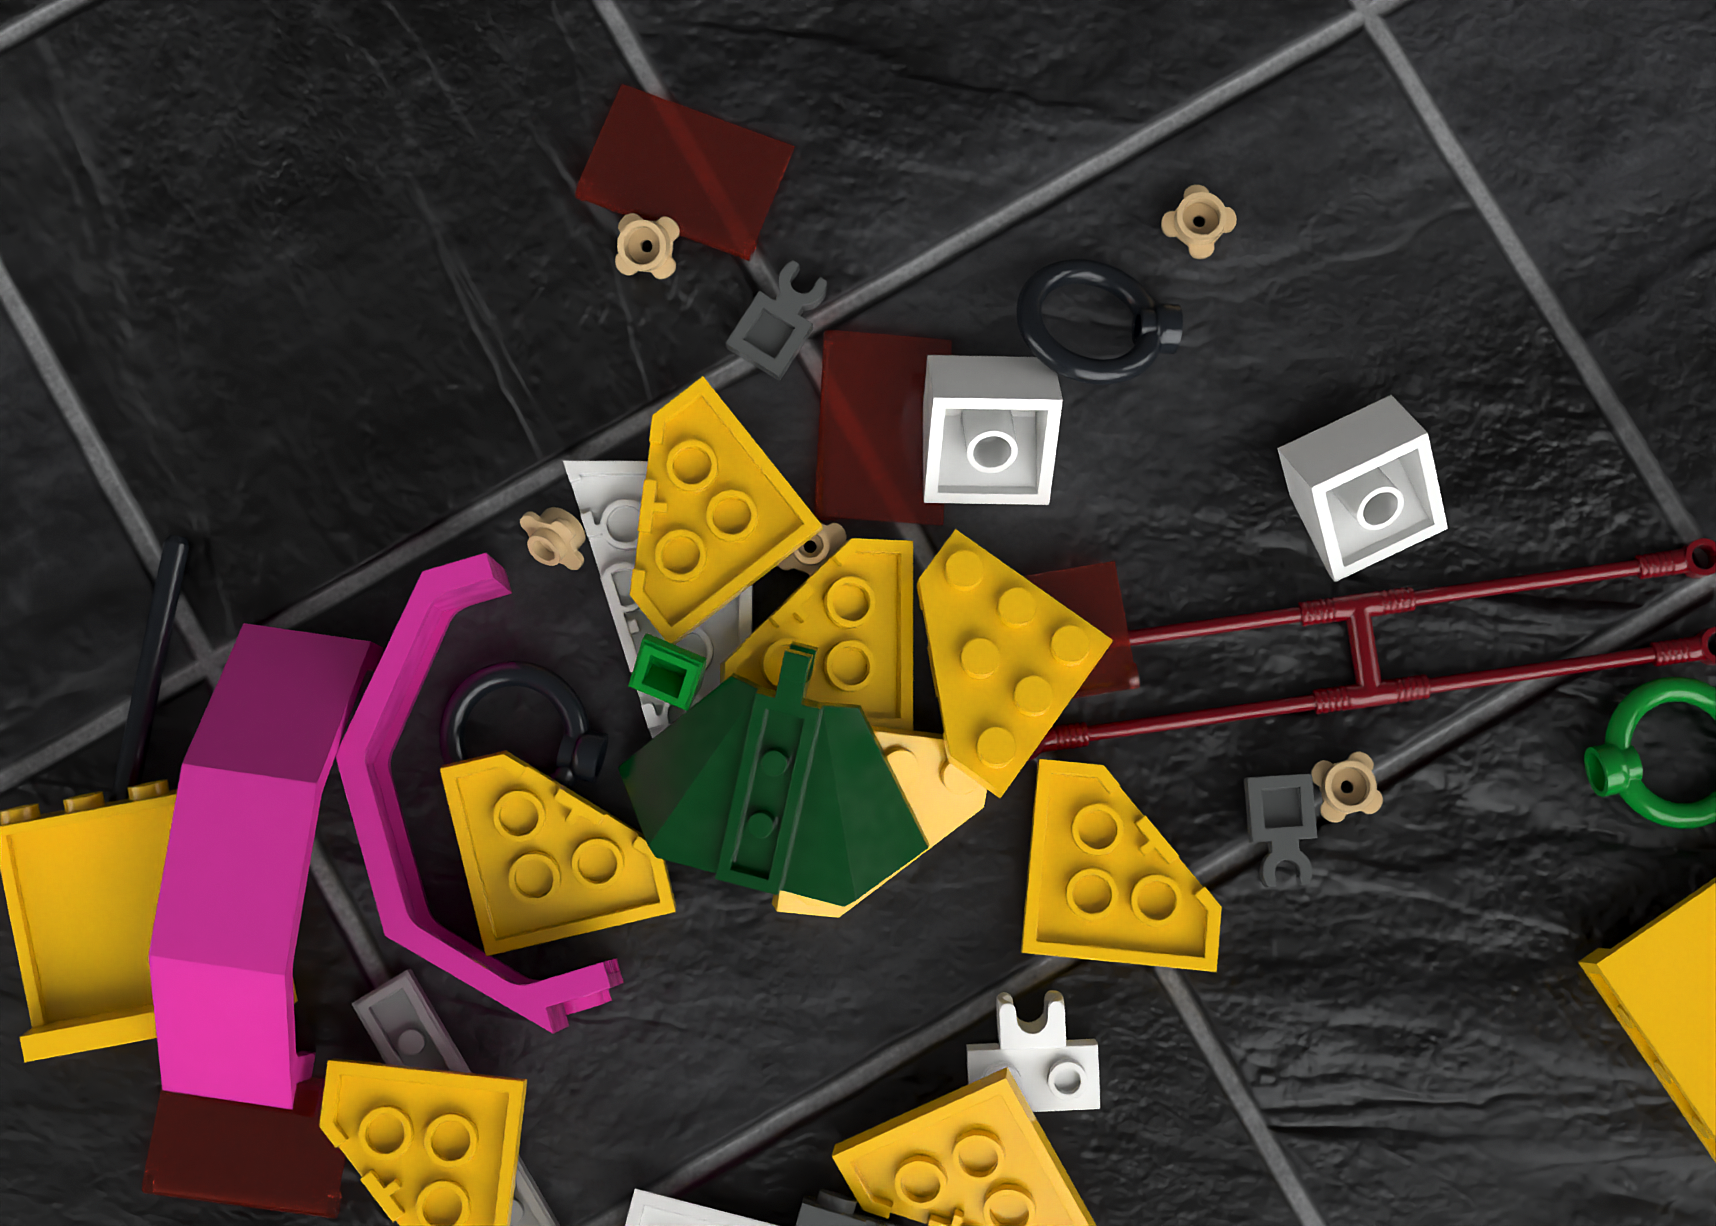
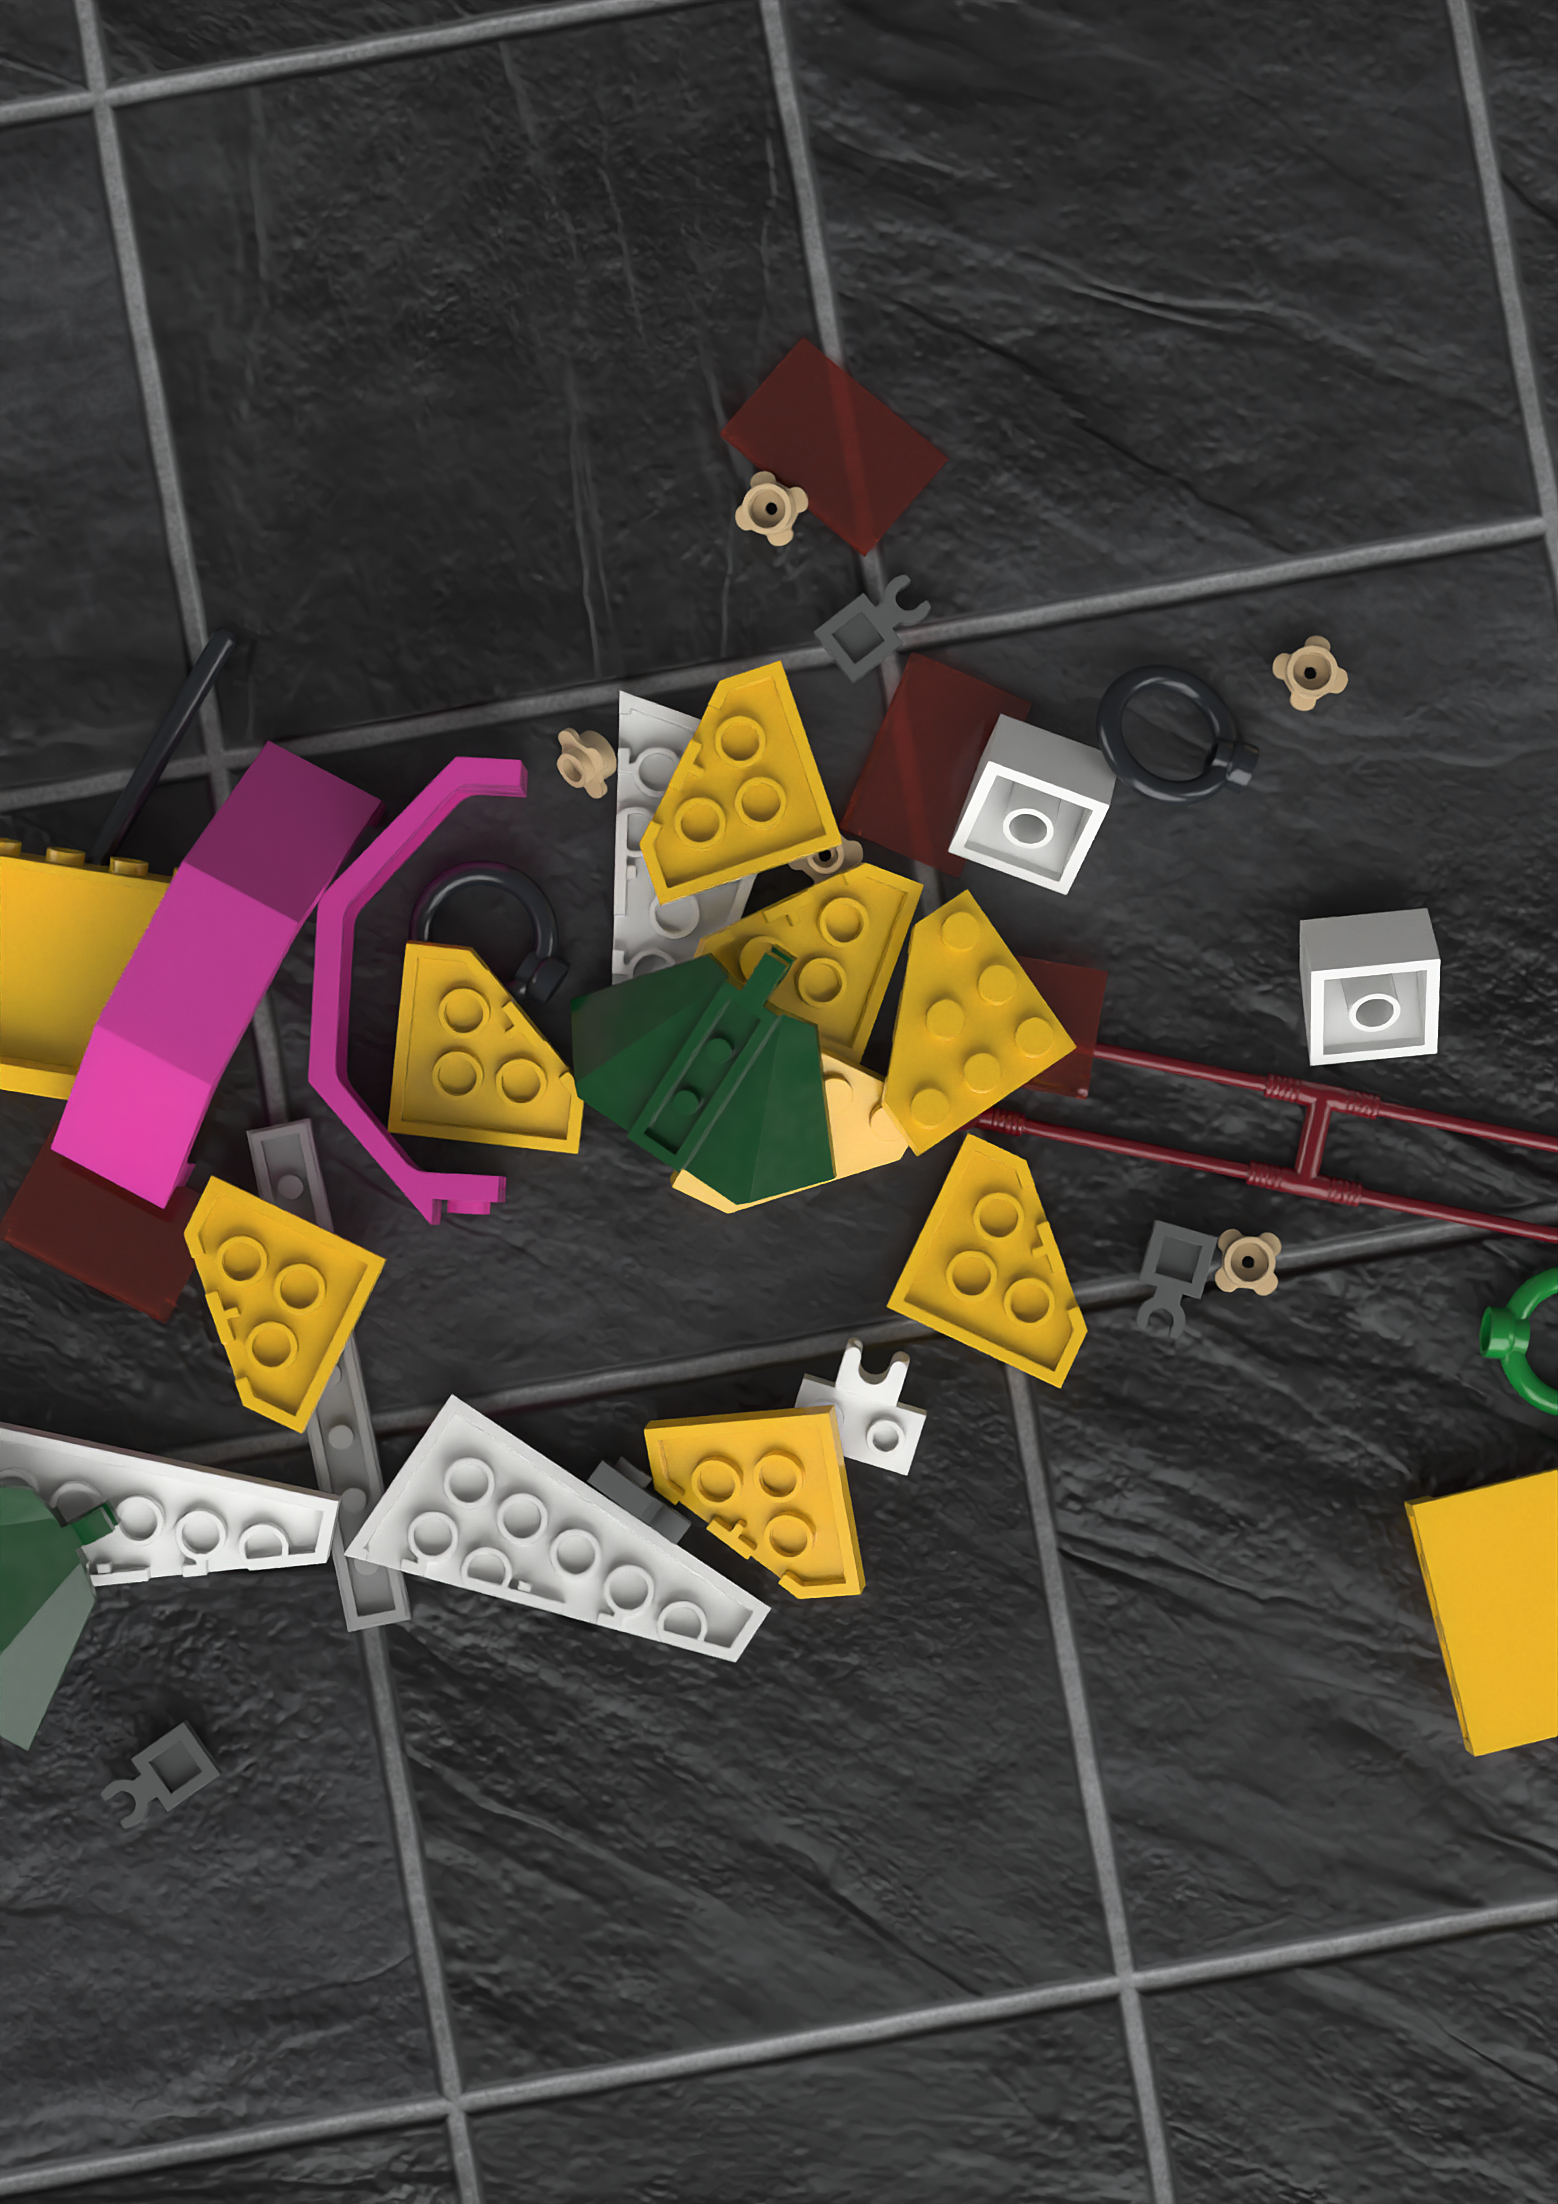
camera: 20 degrees right, 5 degrees up
(668, 672) = (649, 929): green slope -> none

